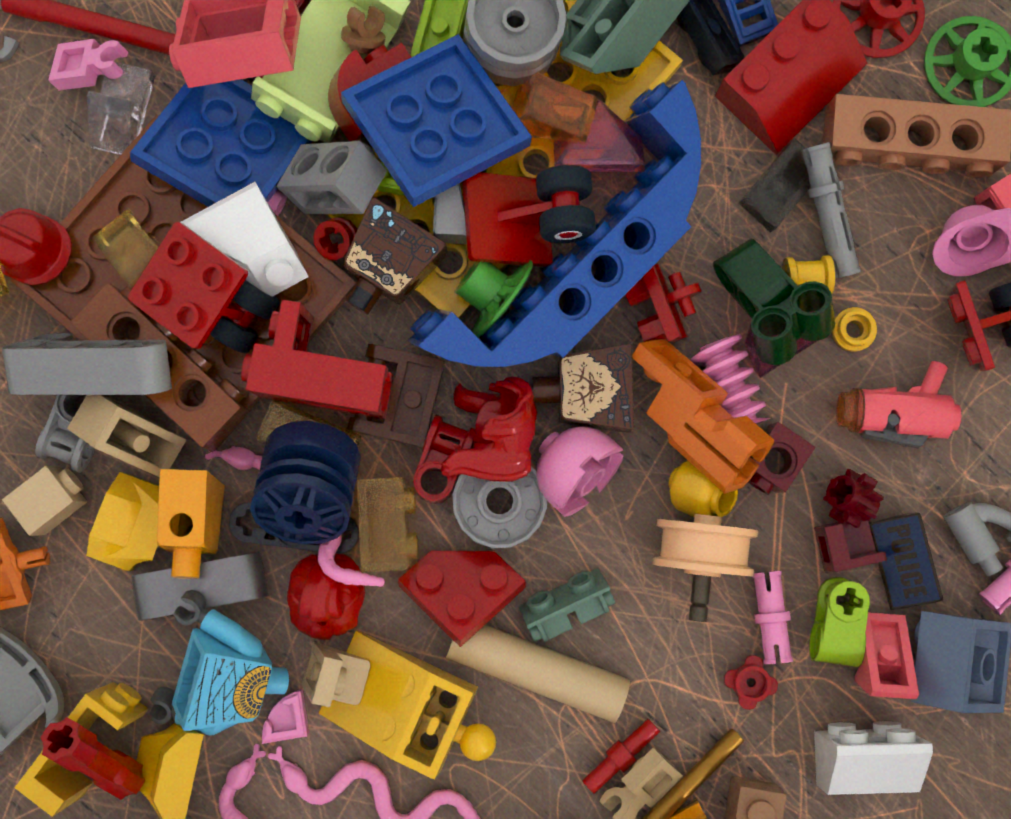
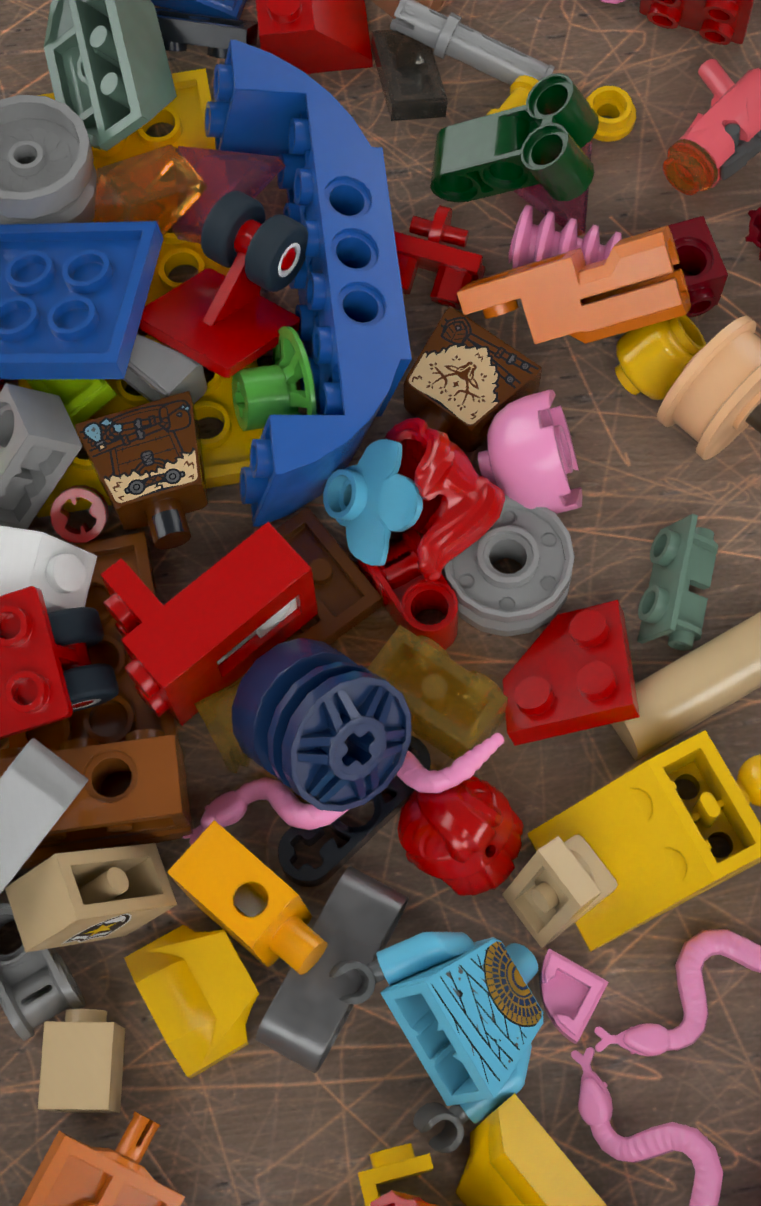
camera: 45 degrees left, 15 degrees down
(467, 400) = (373, 501): none -> medium azure plate

